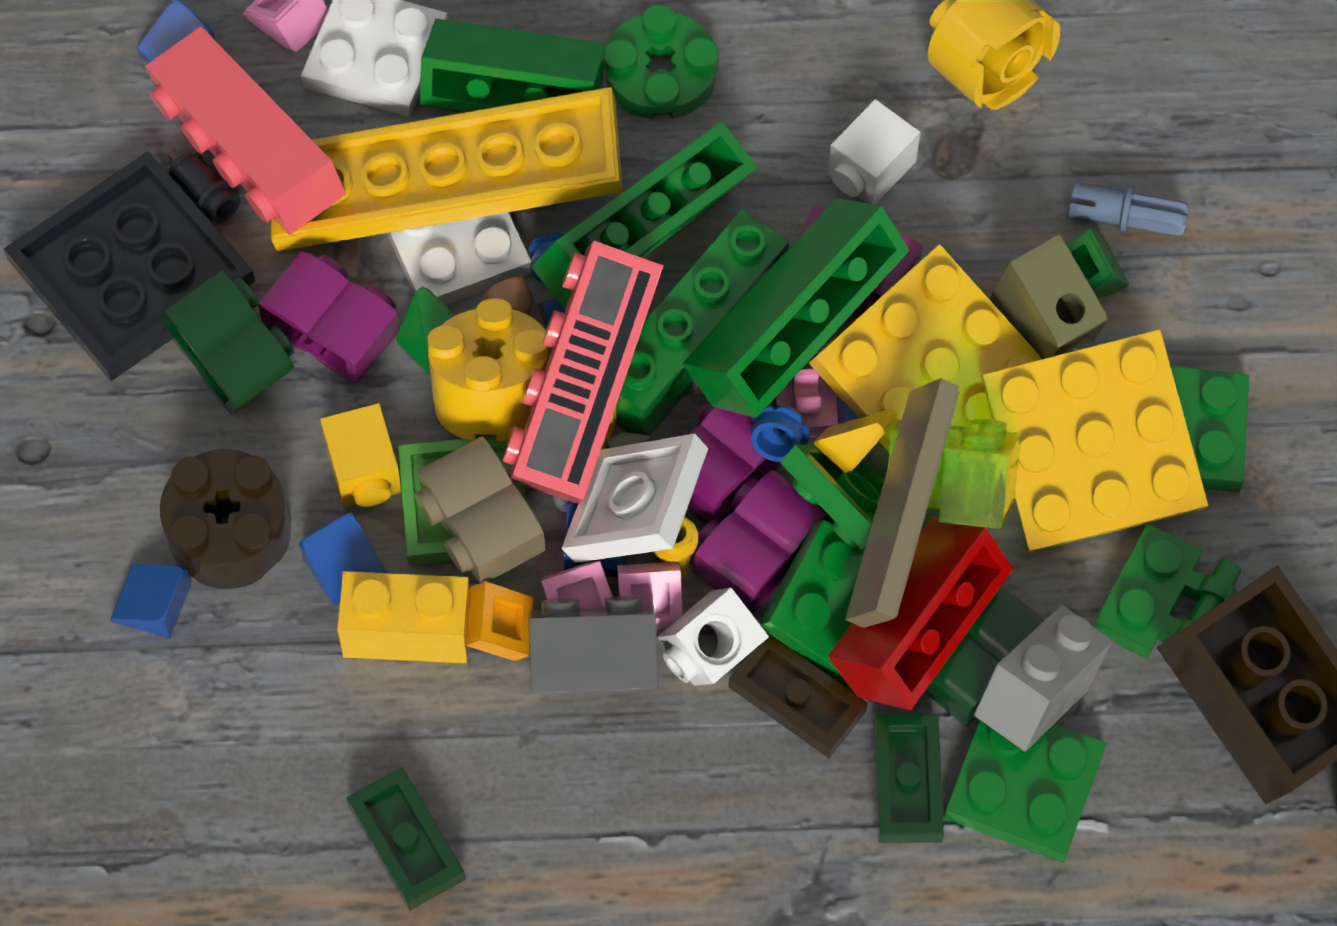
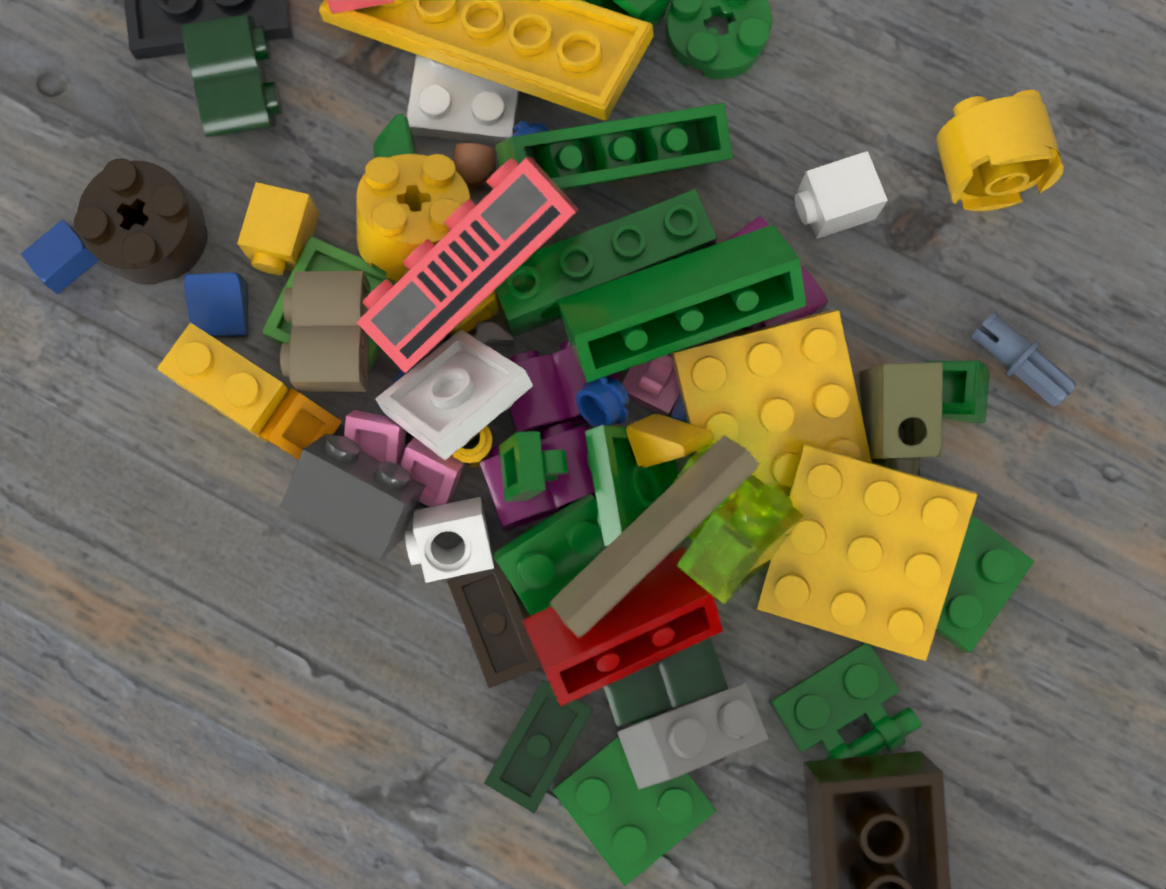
camera: 30 degrees right, 15 degrees up
(330, 316) = (326, 97): magenta brick -> none
(406, 838) = (123, 564): dark green plate -> none
(746, 521) = (527, 467): none -> green tile

